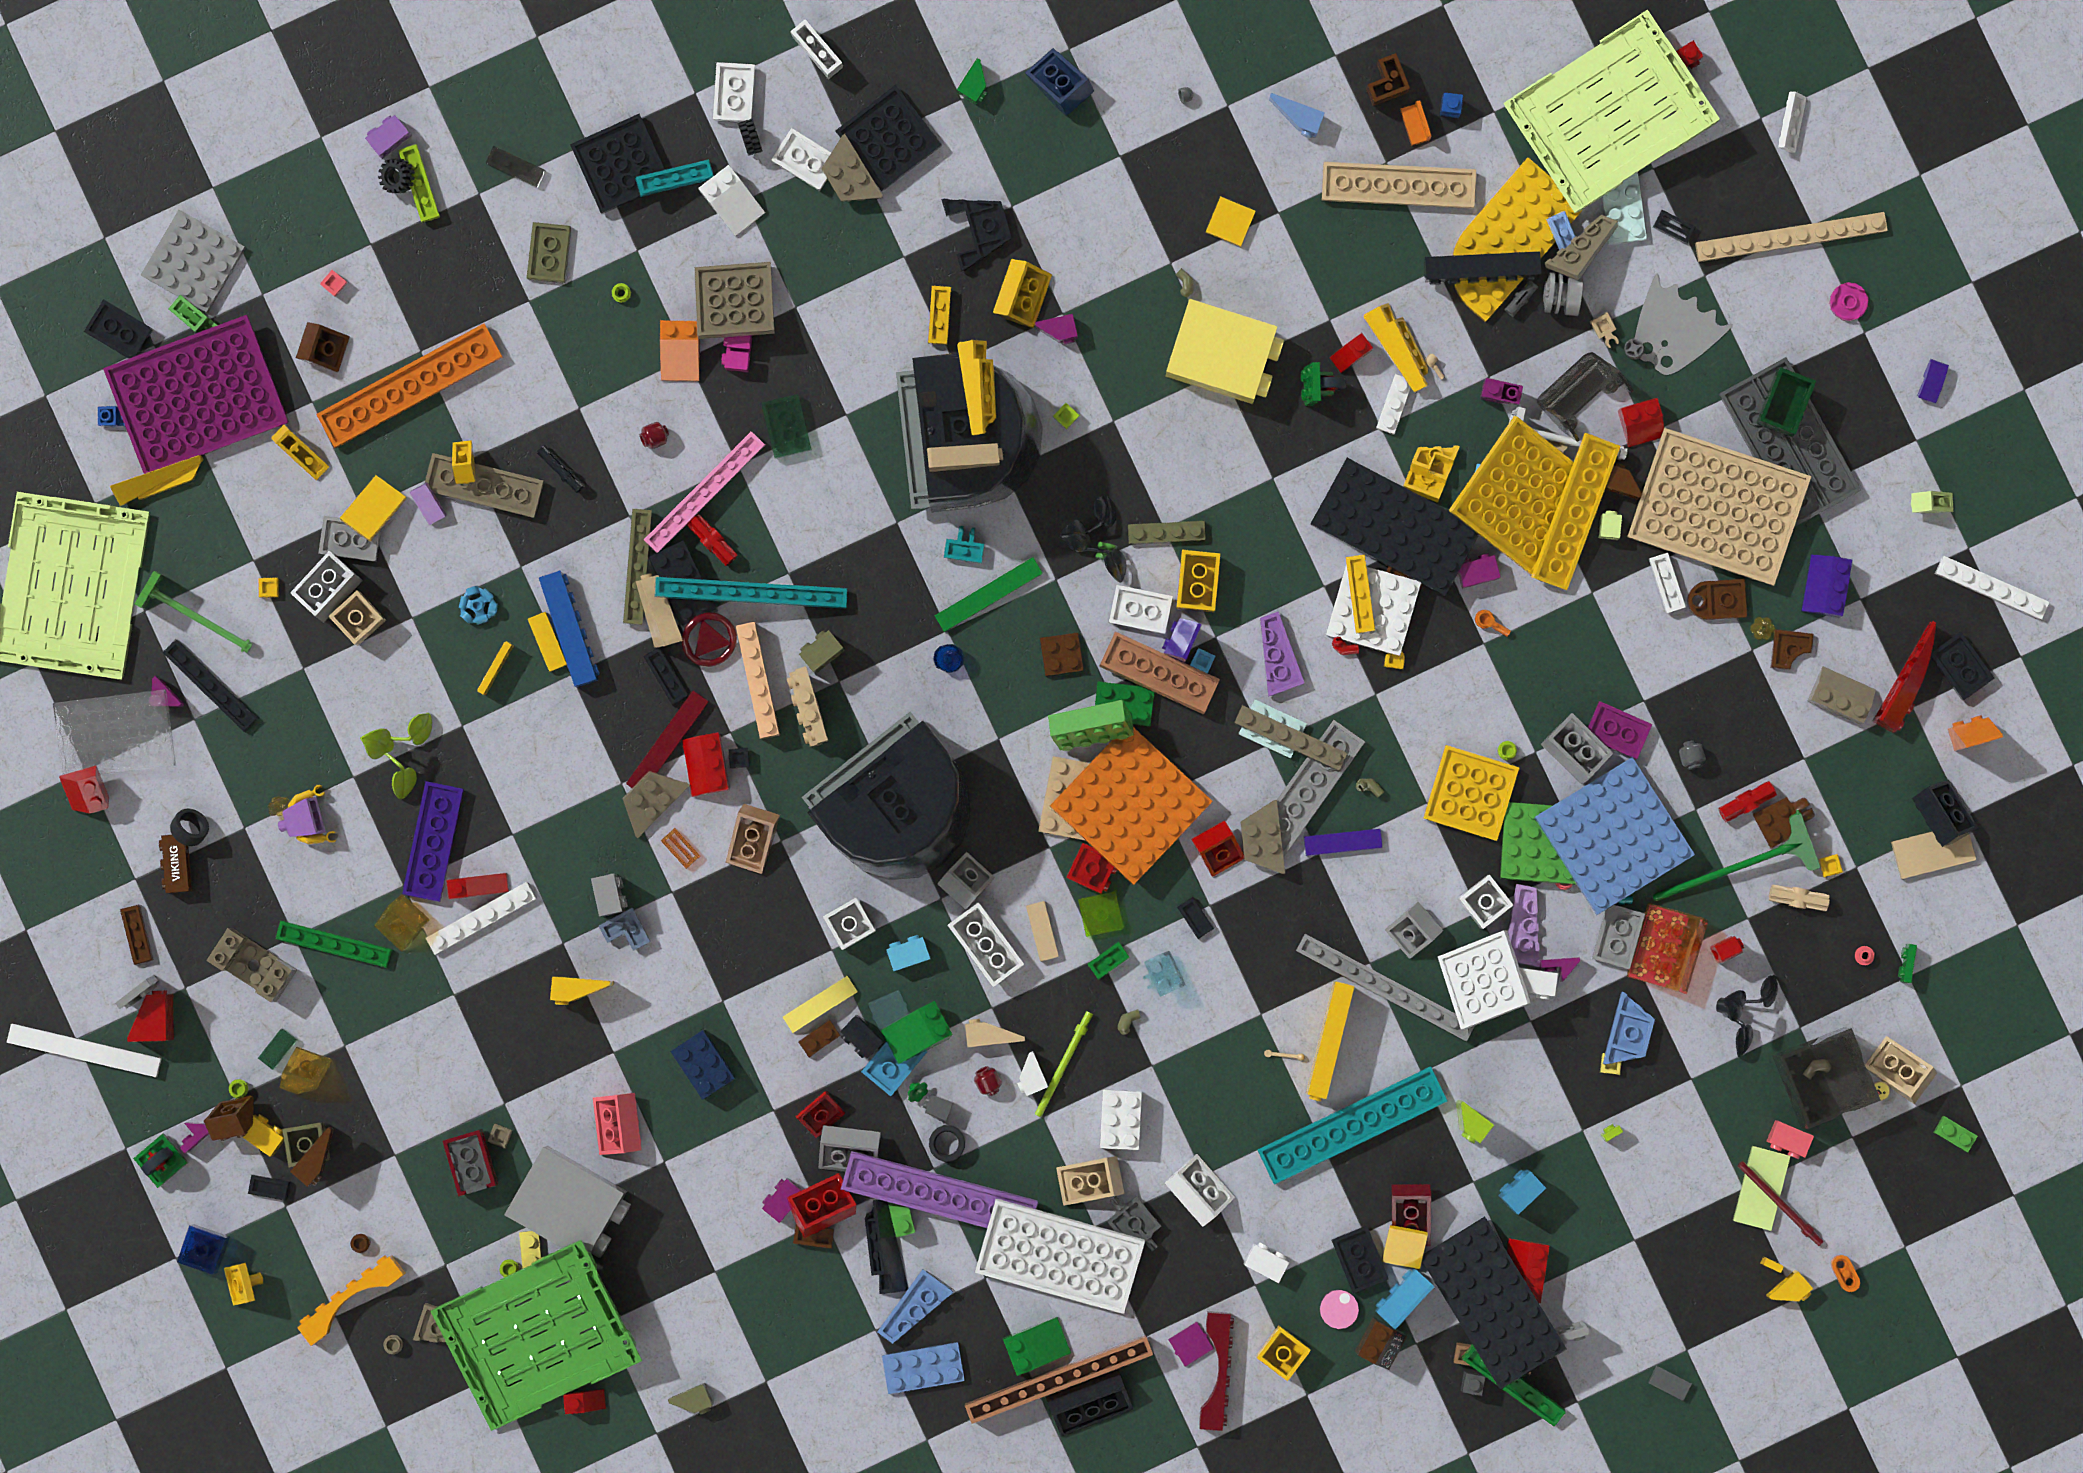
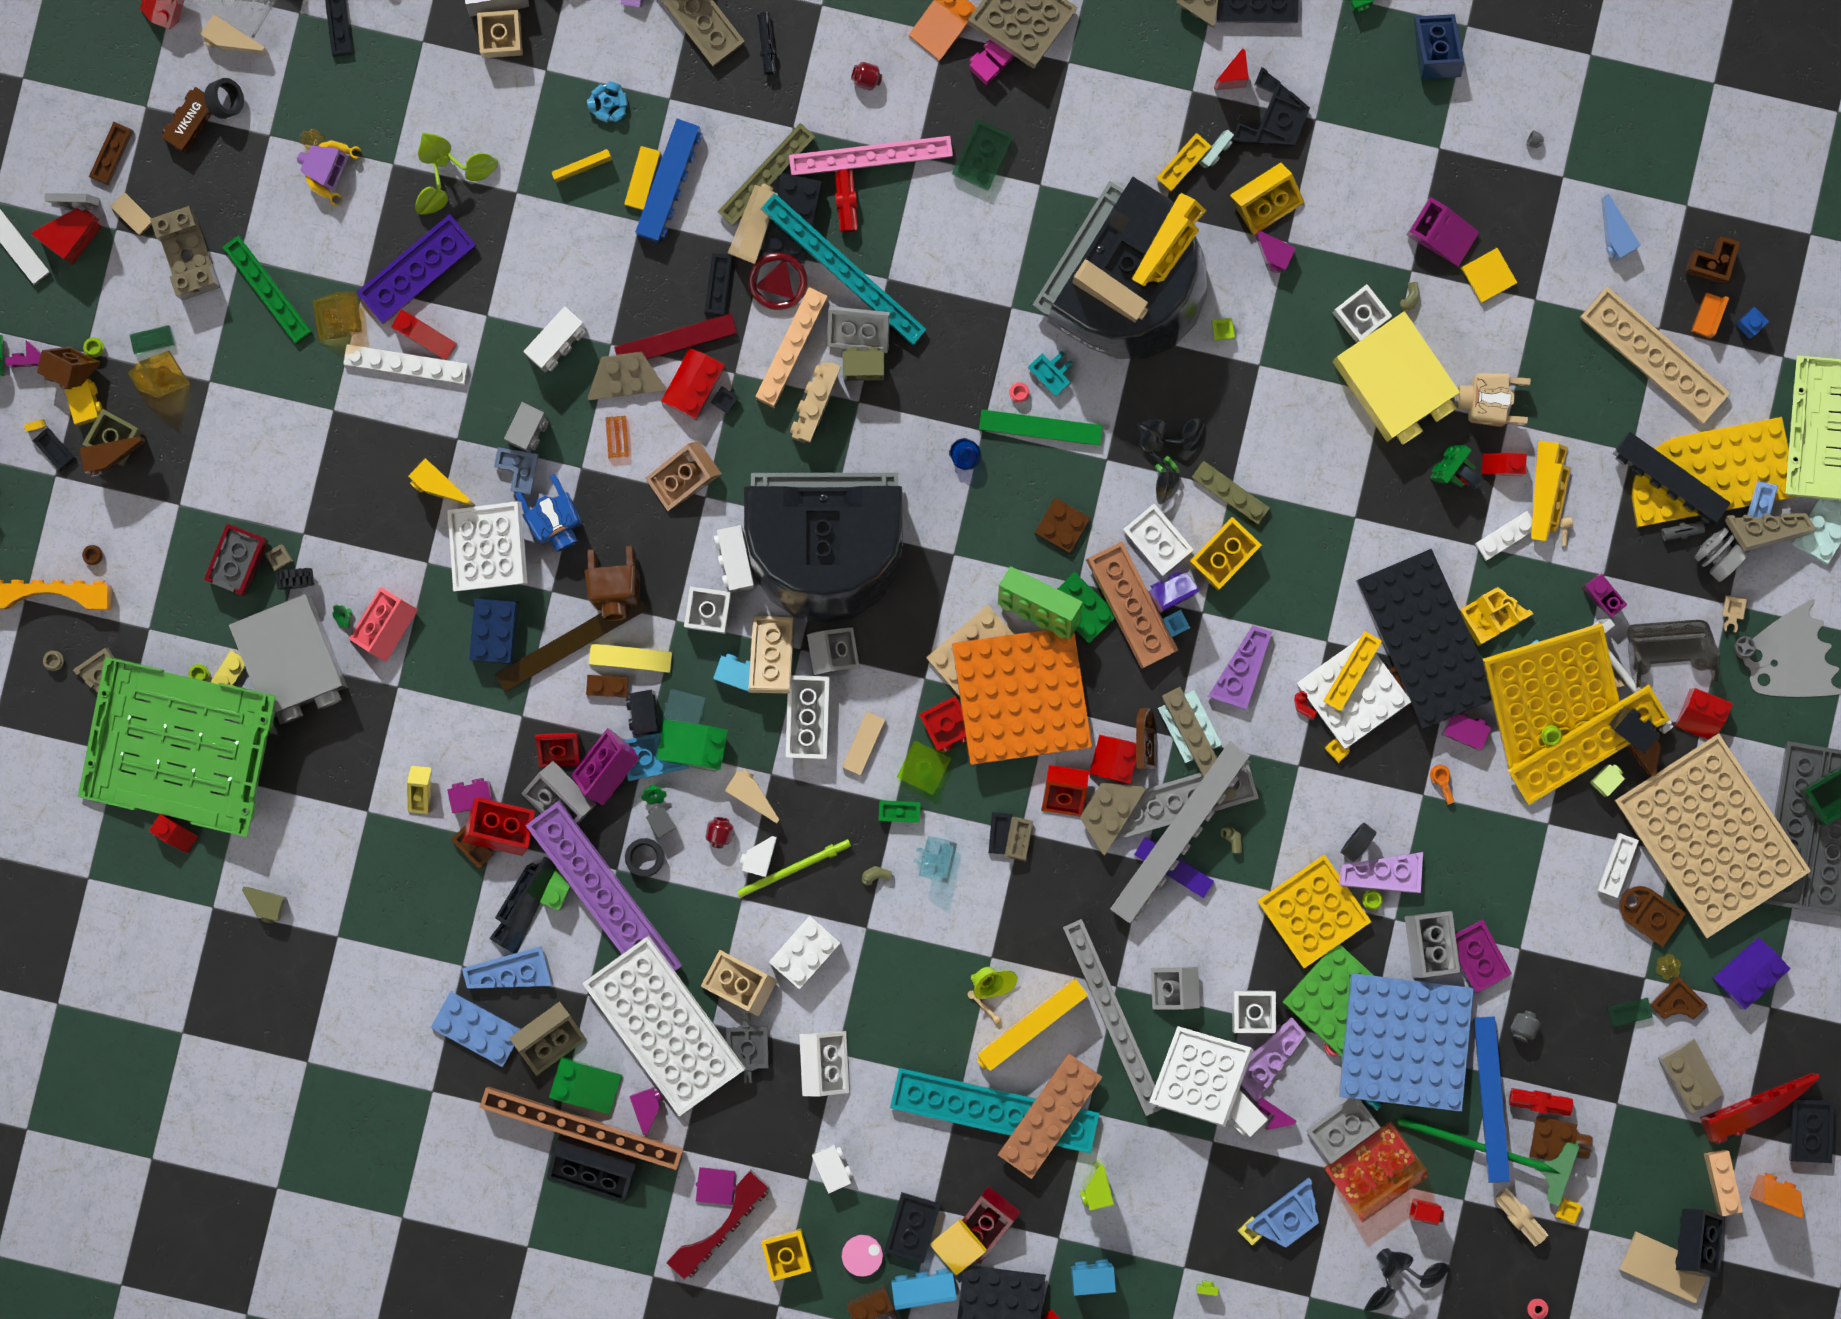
camera: 30 degrees right, 0 degrees up
(154, 780) = (226, 37): none -> tan slope
(188, 967) = (131, 214): none -> tan tile
(241, 1180) = (35, 425): none -> yellow tile
(525, 1142) = (294, 578): none -> black tyre
(579, 812) = (555, 340): none -> white brick
(581, 1141) = (342, 615): none -> green plant
(649, 1005) = (487, 546): none -> white plate
(681, 946) = (552, 518): none -> blue piece
(740, 1225) = (419, 789): none -> light yellow slope
(766, 1027) = (561, 648): none -> dark brown tile
(767, 962) = (613, 587): none -> reddish brown piece
(796, 628) = (858, 328): none -> light grey plate
(839, 870) = (734, 559): none -> white brick
(865, 1099) = (605, 767): none -> magenta slope
(922, 919) = (771, 654): none -> tan tile
(926, 220) = (1235, 74): none -> red slope
(952, 581) = (1019, 392): none -> coral plate
(957, 278) = (1211, 156): none -> light aqua plate
(981, 1333) = (547, 1038): none -> dark tan slope
(1094, 1326) = (646, 1106): none -> magenta slope
(1159, 324) = (1362, 314): none -> white brick
(1171, 216) = (1442, 231): none -> magenta slope
(1212, 911) = (1018, 838): none -> dark tan plate
(1236, 796) = (1114, 759): none -> red slope
(1248, 764) = (1145, 740): none -> reddish brown tile
(1277, 1032) = (993, 983): none -> lime piece
(1303, 313) = (1490, 398): none -> tan piece
(1327, 812) = (1180, 831): none -> light grey brick
(1395, 1097) = (1049, 1115): none -> nougat plate
(1463, 716) = (1358, 842): none -> black tyre
(1505, 721) = (1390, 874): none -> lavender wing
(1543, 526) = (1551, 735): none -> lime plate
(1600, 473) = (1634, 729): none -> black brick
(1710, 828) = (1491, 1099): none -> blue tile
(1760, 684) = (1629, 1012): none -> clear green tile
(1926, 755) = (1723, 1182): none -> light nougat brick

